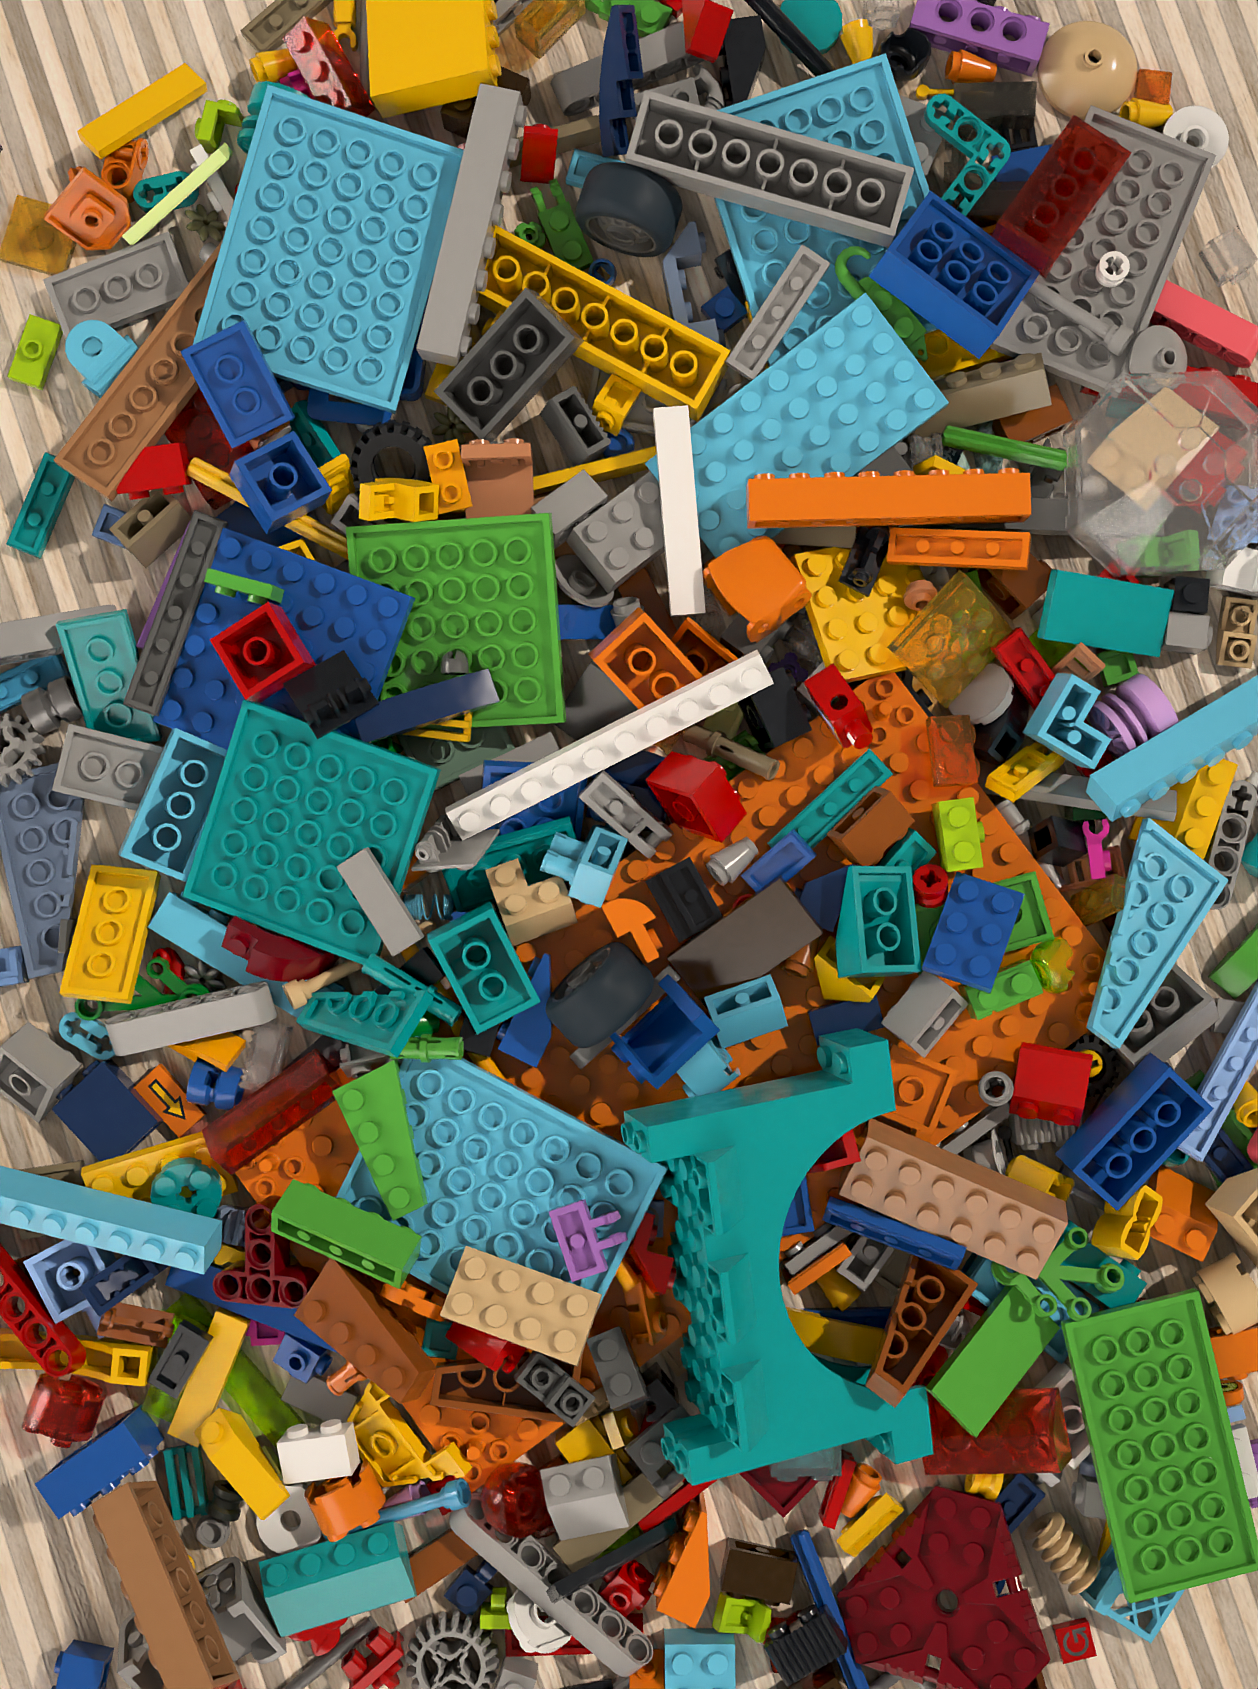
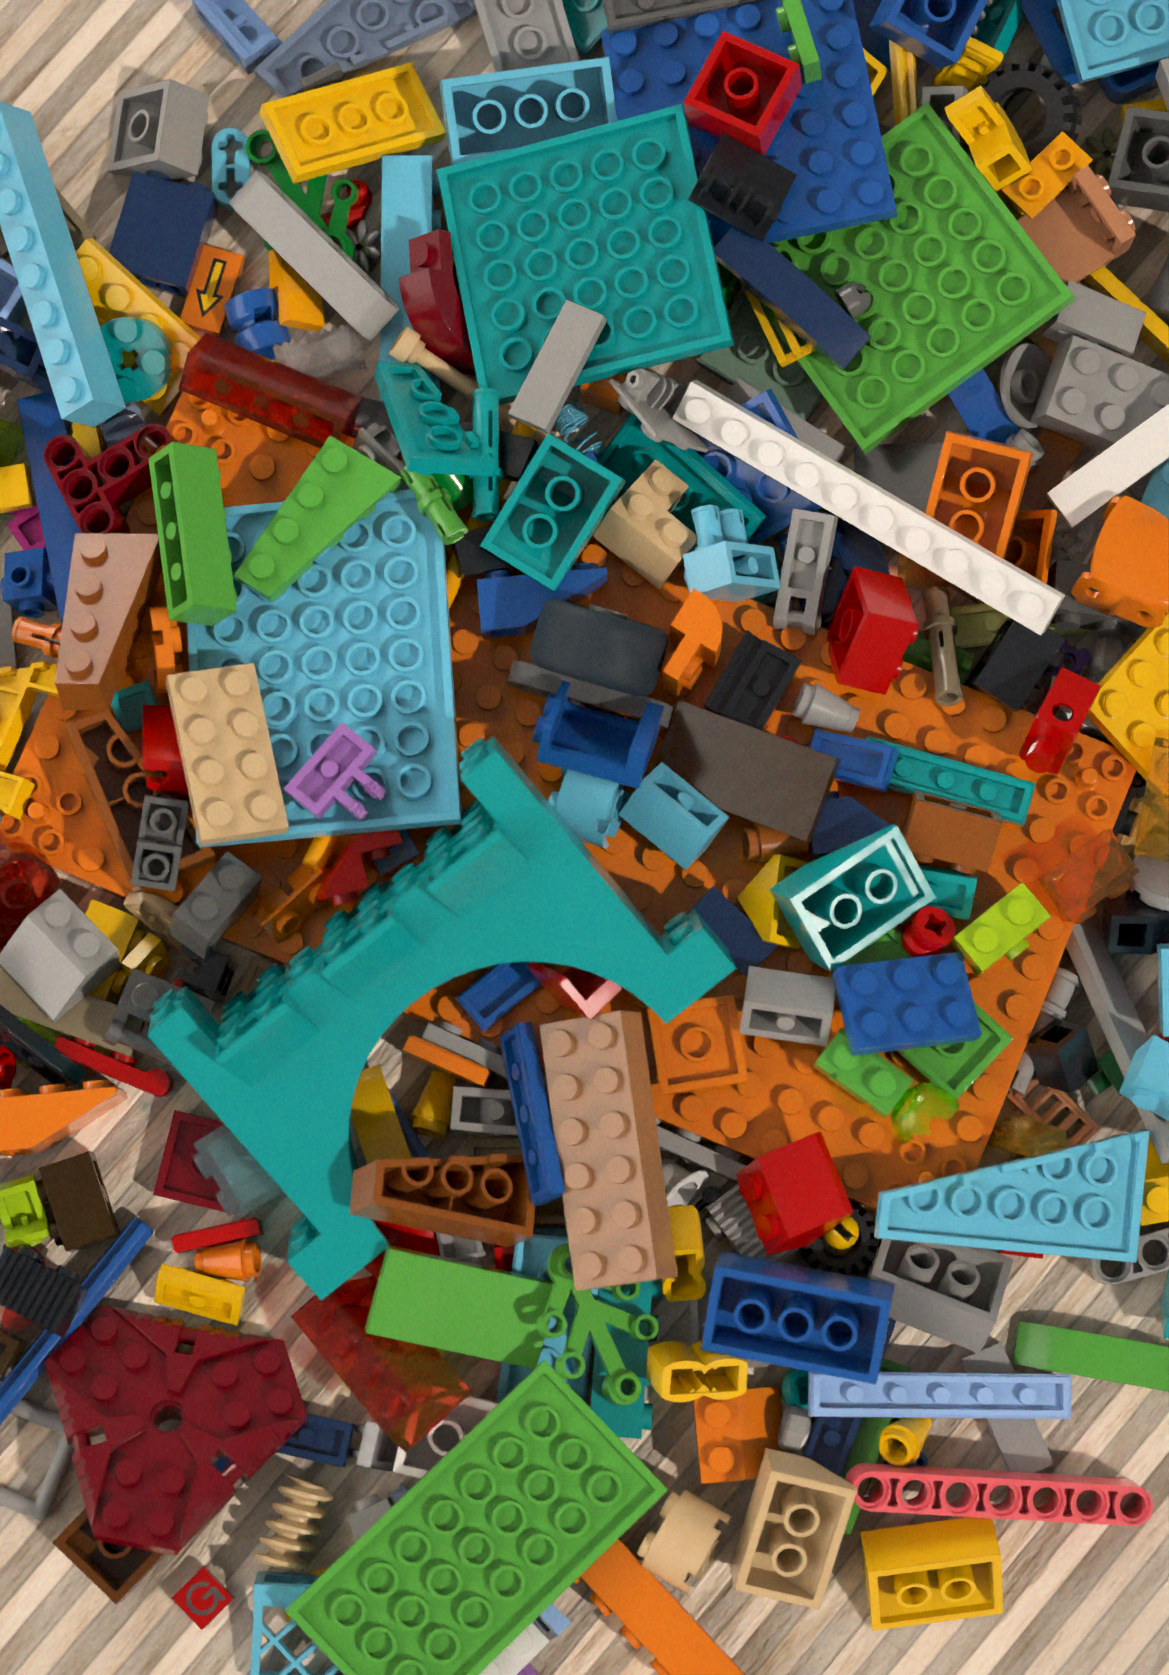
camera: 65 degrees right, 5 degrees down
(986, 1484) = (321, 1390): yellow wheel -> none
(987, 1084) = (752, 1138): light grey cone -> none
(1023, 771) = (1116, 972): yellow hinge -> none
(1098, 859) = (1072, 1107): dark pink plate -> none
(1198, 1174) = (794, 1429): none -> light grey tile
(1232, 1392) = (574, 1606): orange tile -> none

